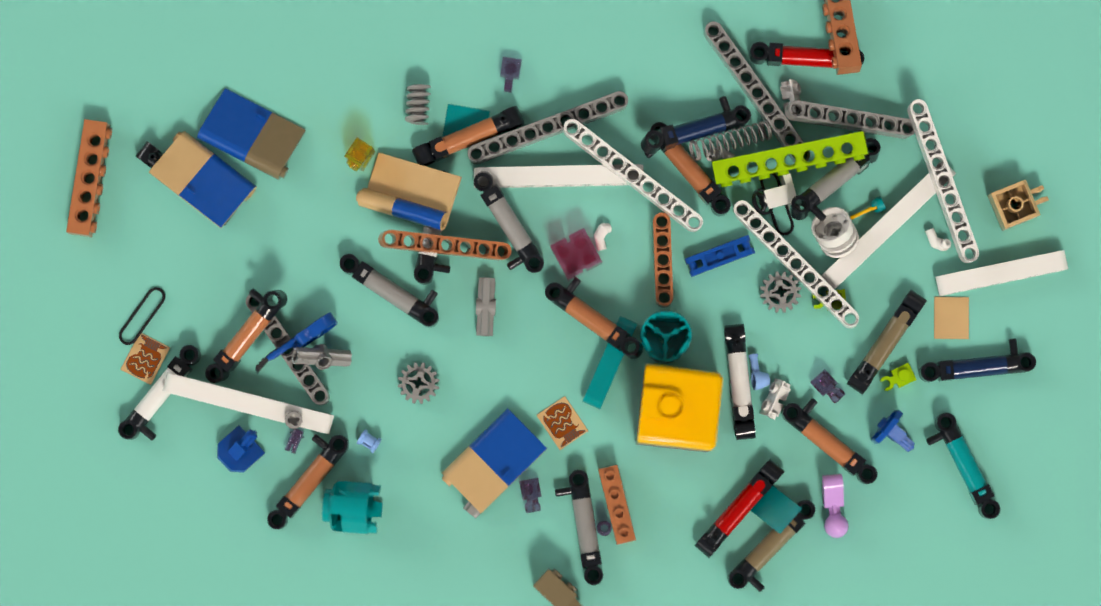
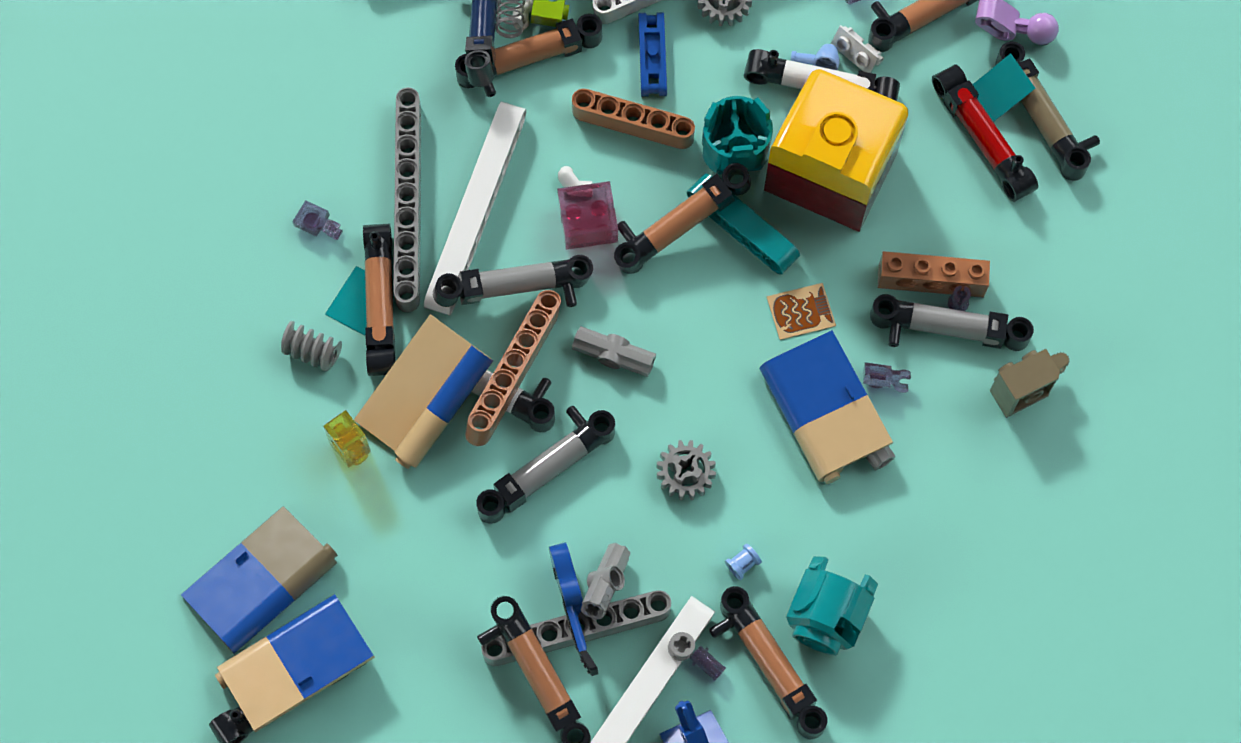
camera: 75 degrees left, 15 degrees down
(623, 172) = (505, 119): white beam -> none

